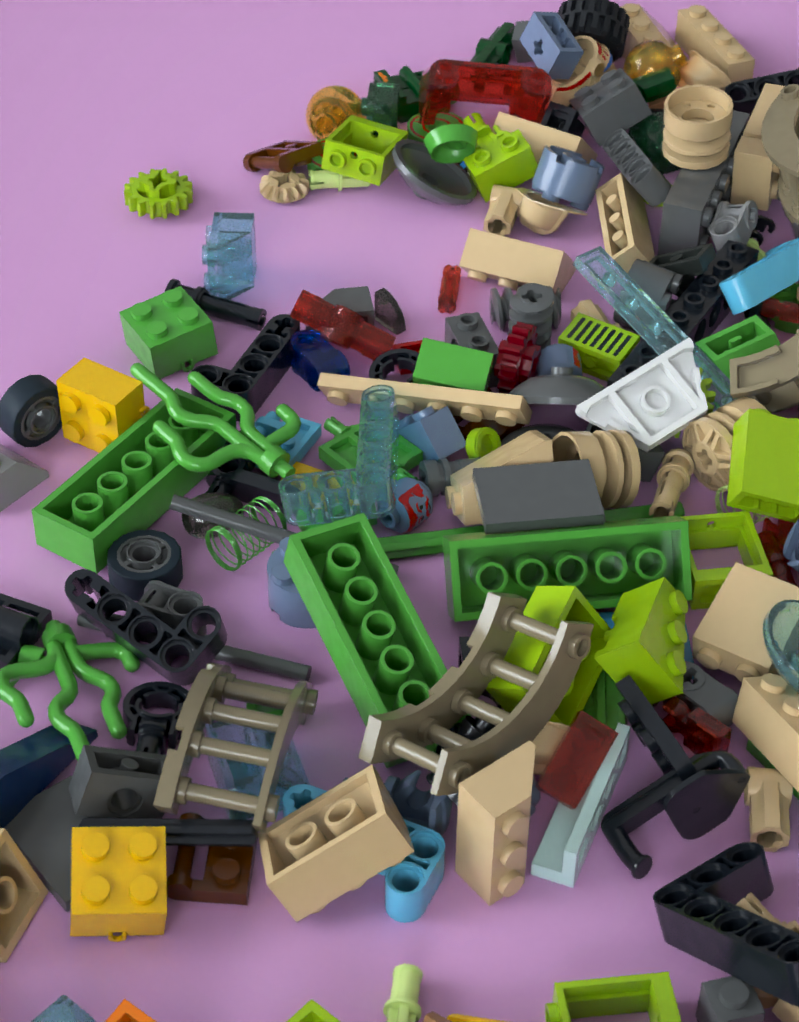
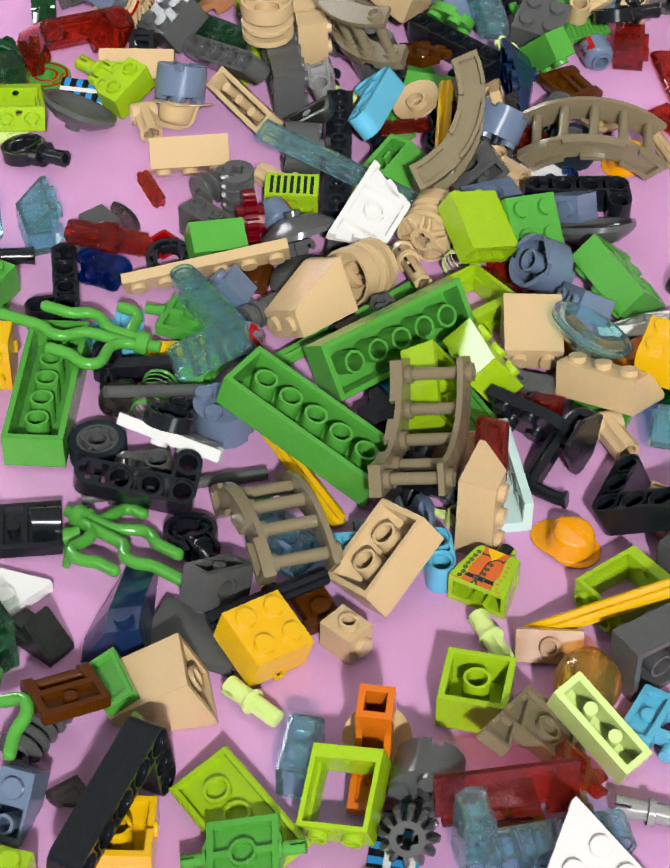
camera: 30 degrees left, 0 degrees up
(57, 954) = (251, 701): none -> yellowish green axle
(227, 921) = (346, 635): none -> tan brick
(228, 589) = (205, 447): none -> white wing
(229, 561) = (172, 417): none -> black pin
(289, 275) = (39, 217): none -> clear light blue slope
(342, 731) = (331, 509): none -> yellow axle
(352, 202) = (35, 152): none -> black pin
(451, 143) = (84, 82): bright green hat -> none
(455, 929) = (486, 579): none -> lime torso
(482, 441) = (266, 282): lime tile -> none
(537, 496) = (351, 297): dark grey tile -> none
(552, 414) = (300, 246): none -> dark grey piece
(603, 927) = (568, 541): none -> light orange piece

